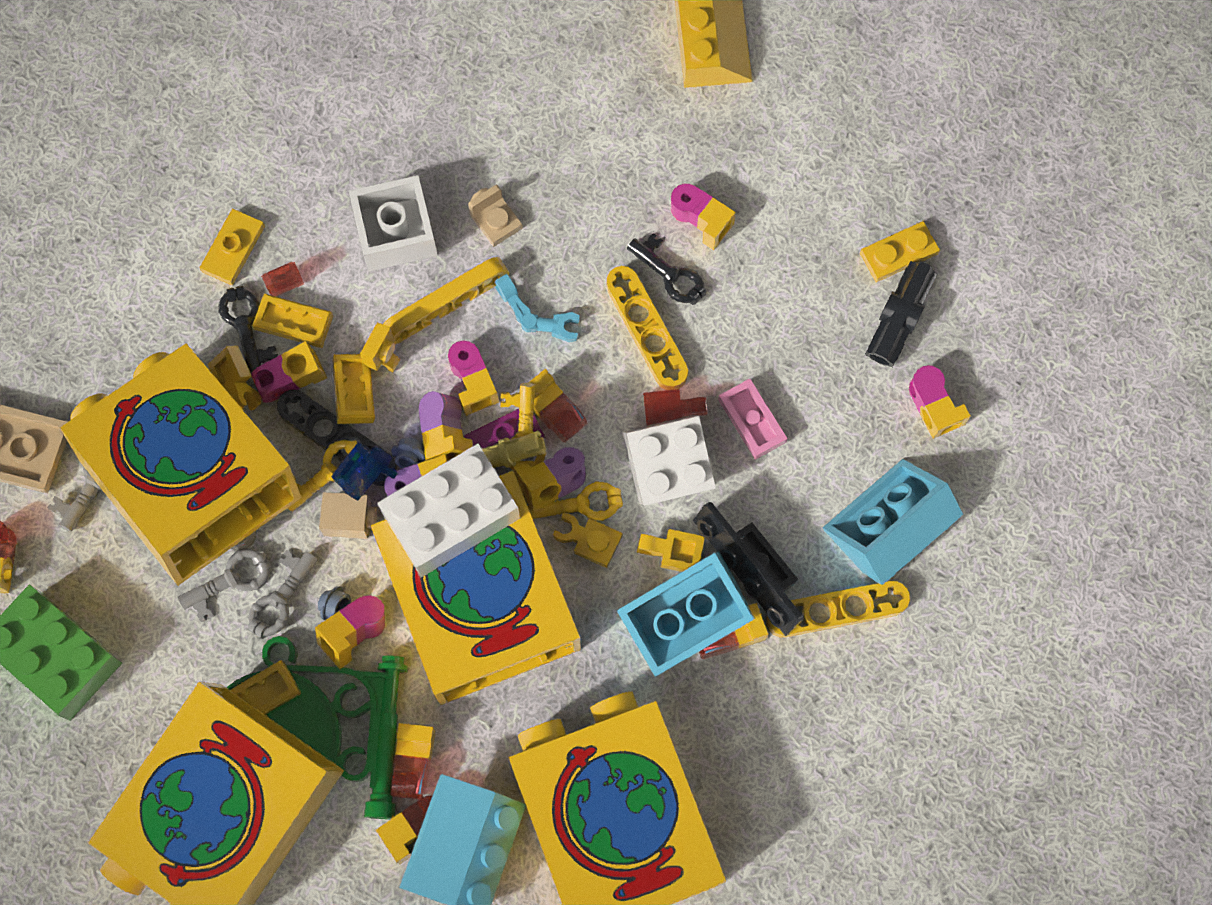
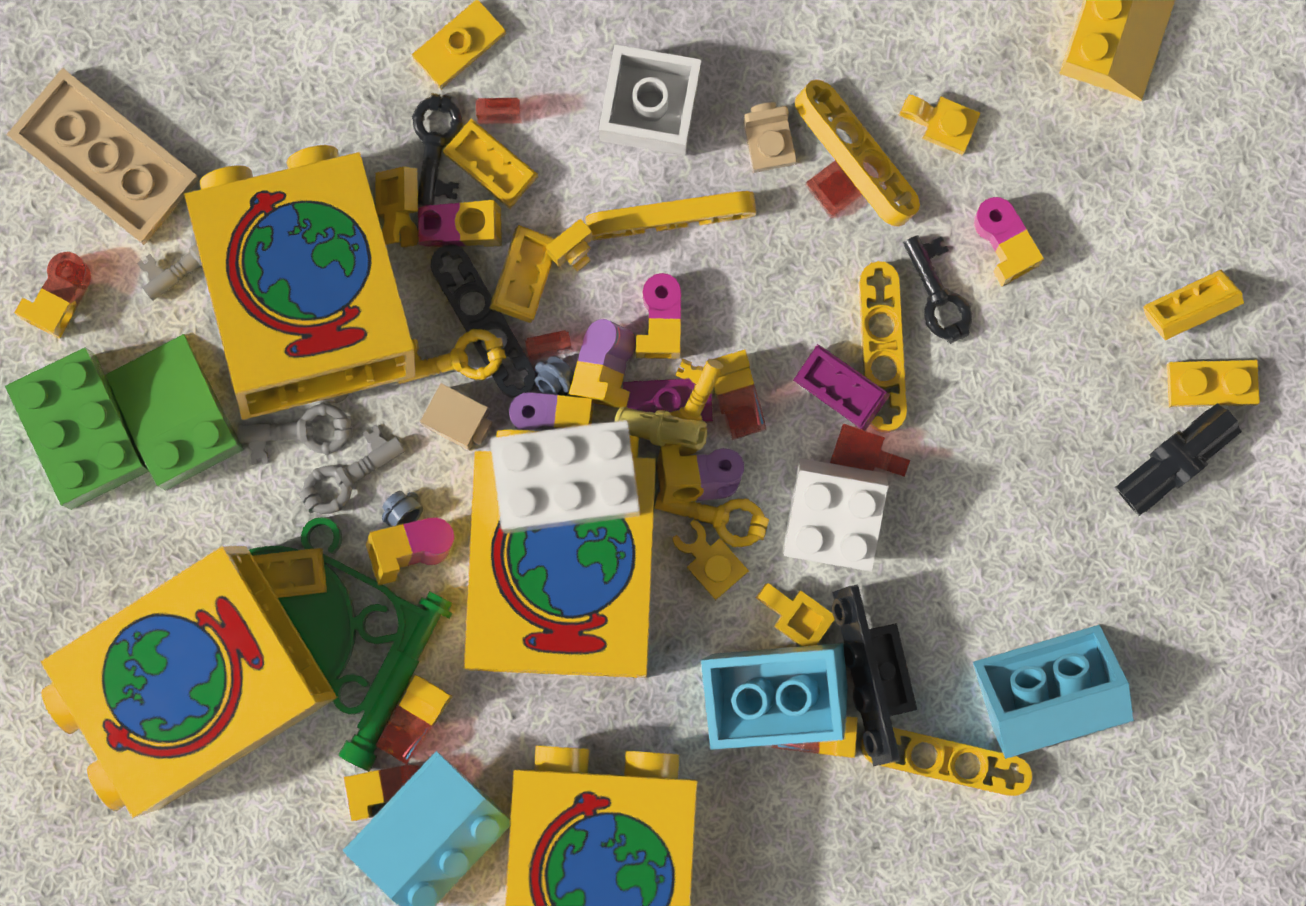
camera: 25 degrees right, 10 degrees up
(123, 609) = (173, 413): none -> bright green slope
(361, 469) = (494, 377): clear blue bracket -> none
(394, 430) = (548, 345): none -> clear red tile
(531, 322) = (756, 283): medium azure piece -> none
(534, 182) = (852, 156): none -> yellow beam
(559, 231) = (833, 189): none -> clear red tile
(620, 153) = (946, 123): none -> yellow plate
(630, 367) = (841, 387): none -> magenta plate
(752, 419) = (952, 506): bright pink plate -> none
(858, 201) = (1193, 304): none -> yellow plate
(934, 402) = (1164, 578): leg -> none

